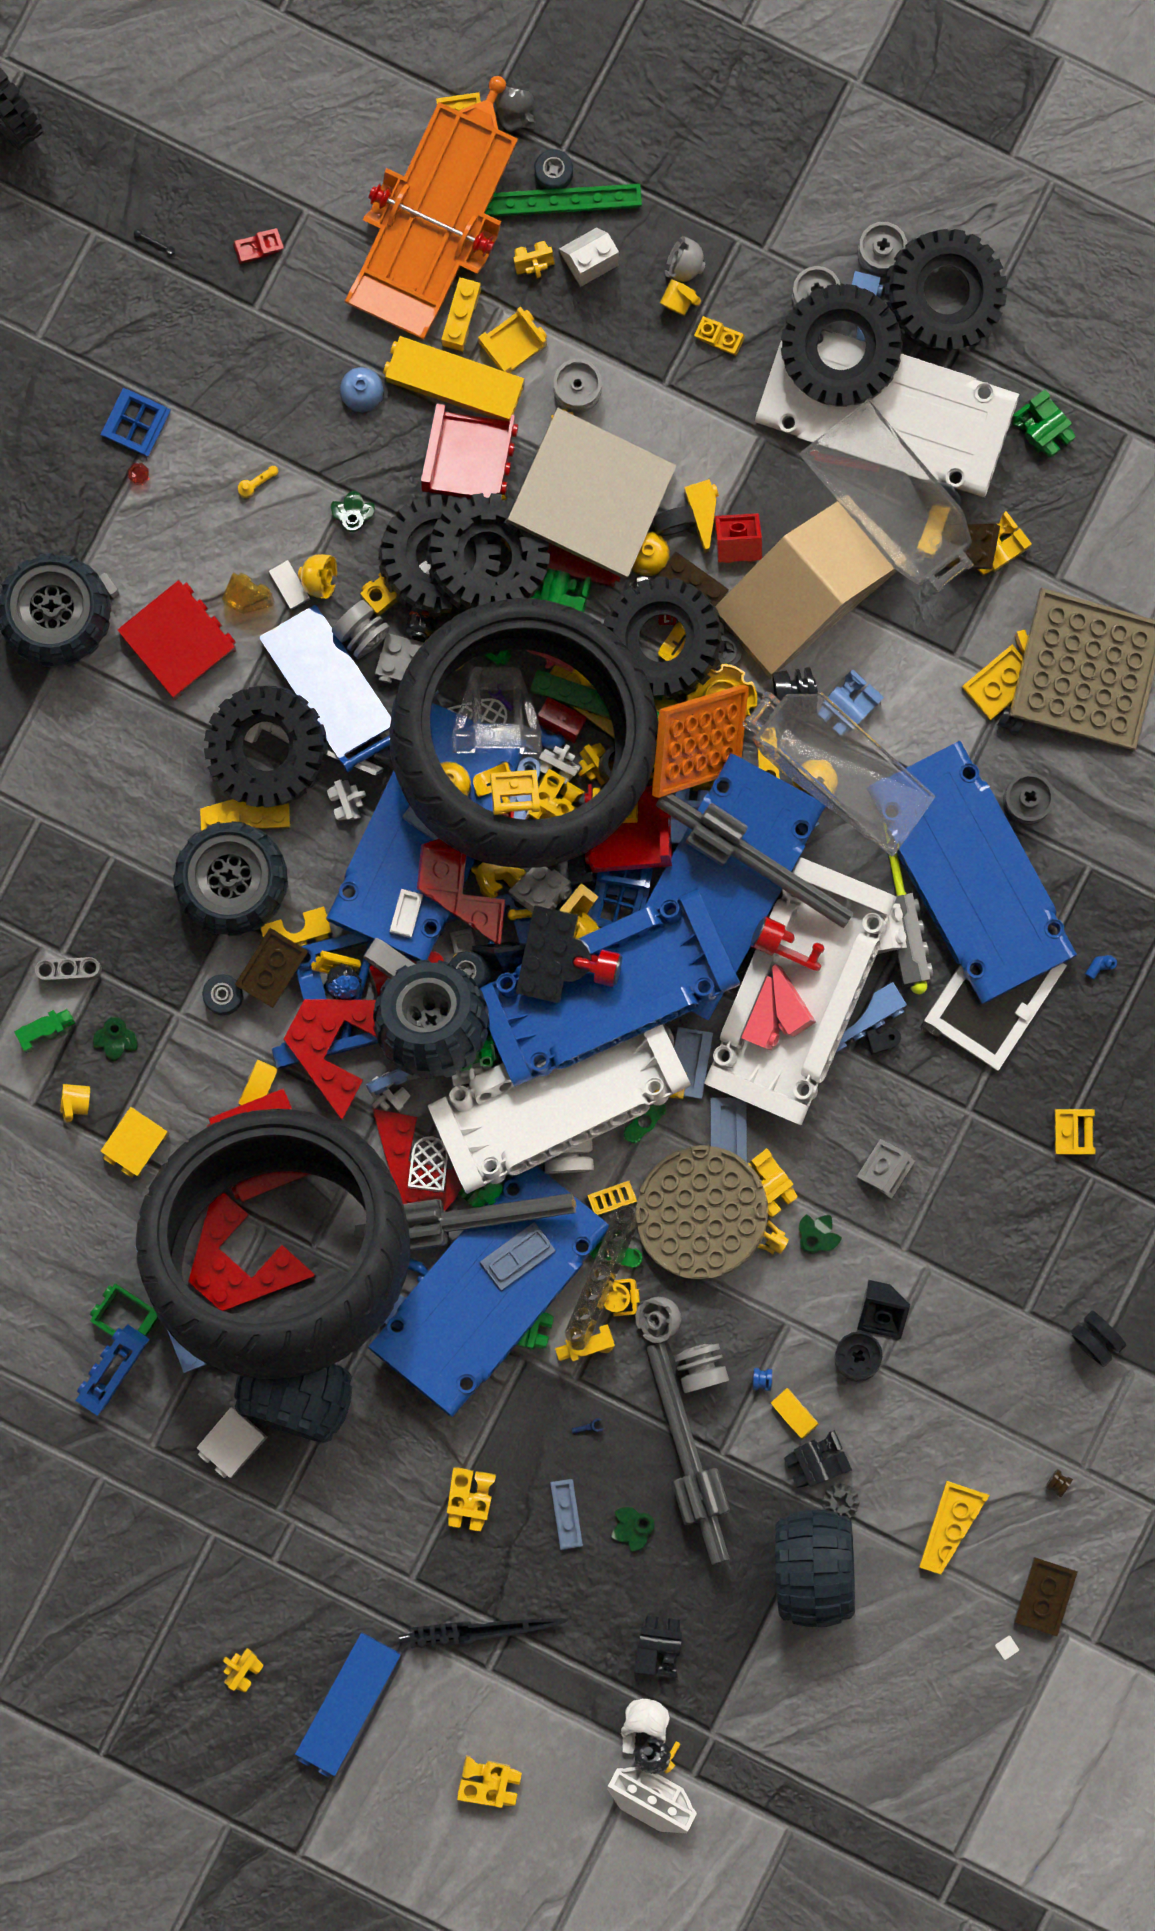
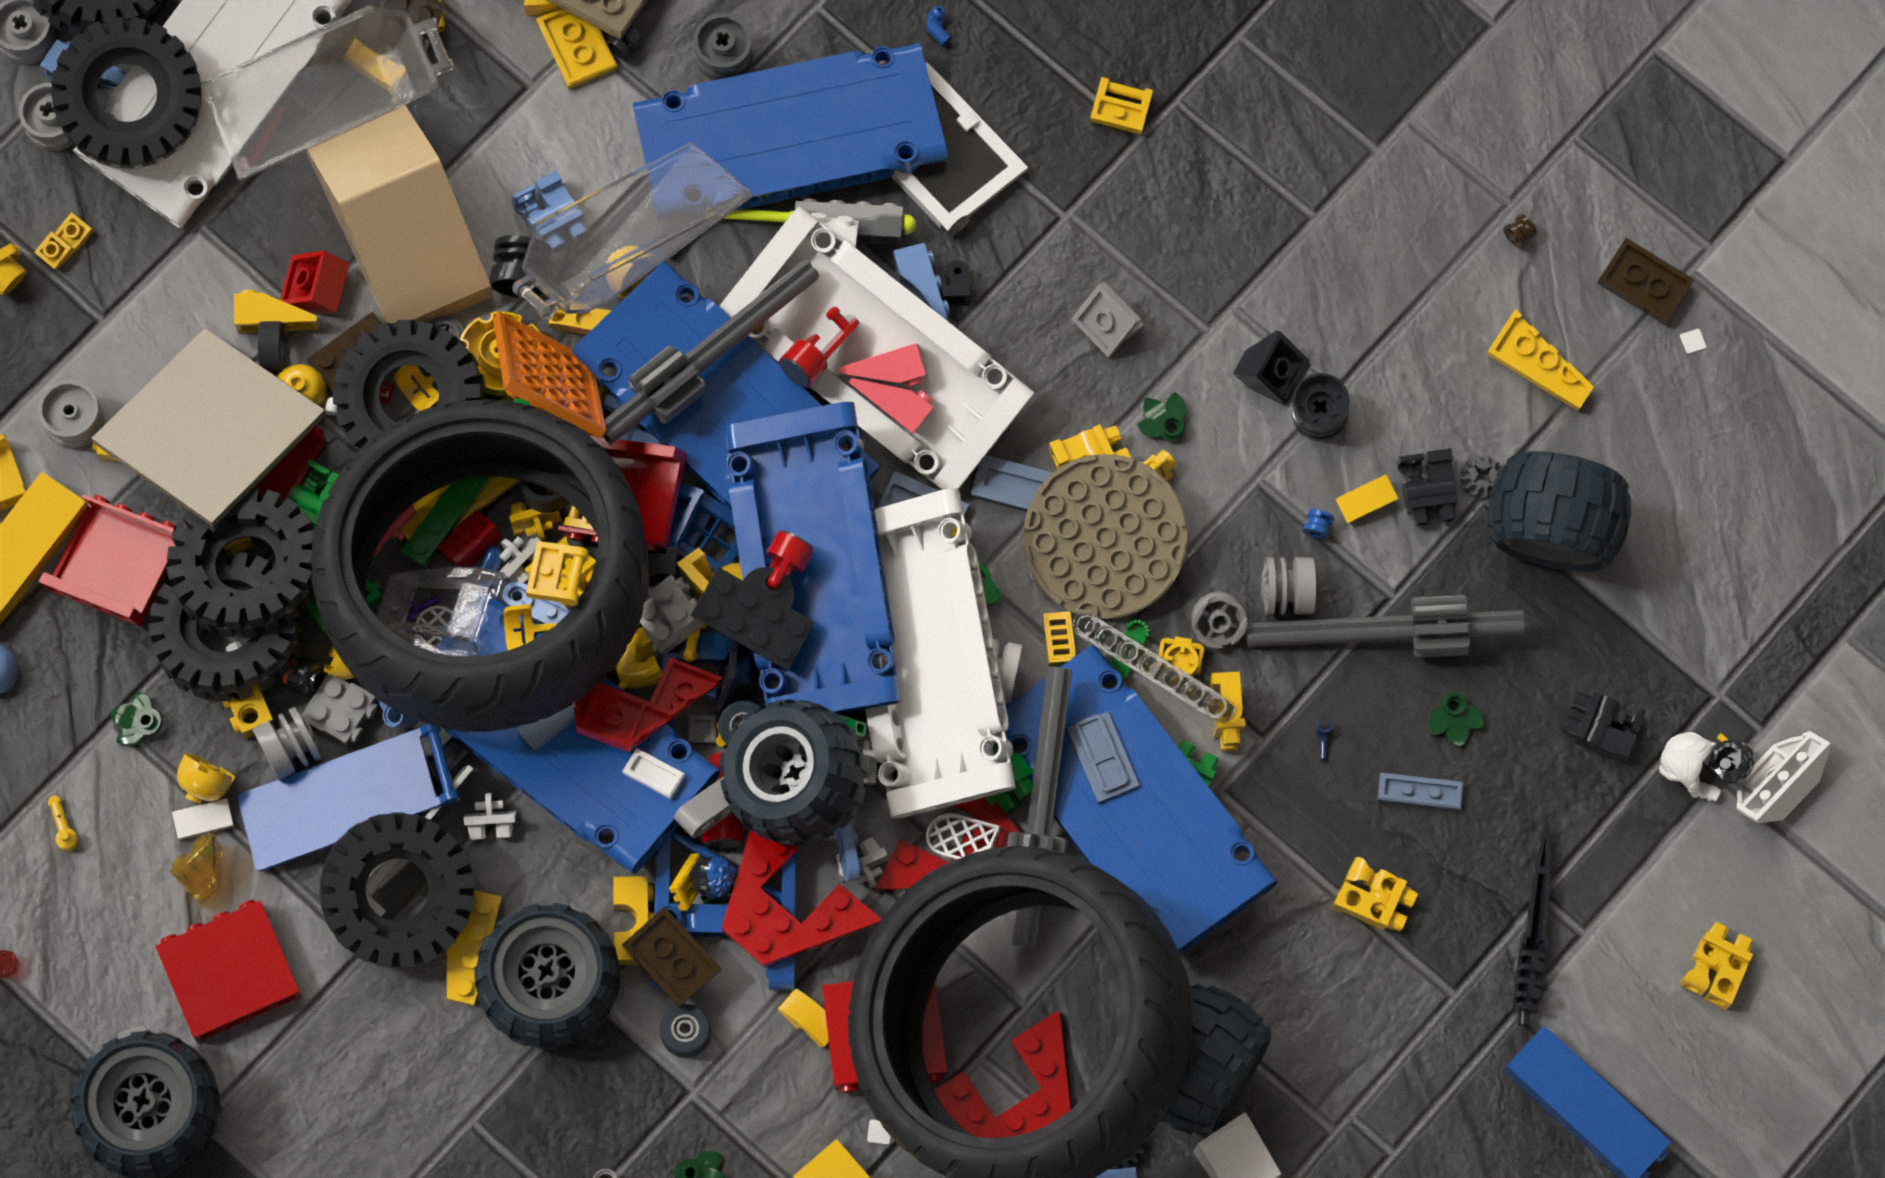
camera: 80 degrees left, 10 degrees down
(1099, 1336) = (1367, 140): black wheel -> none

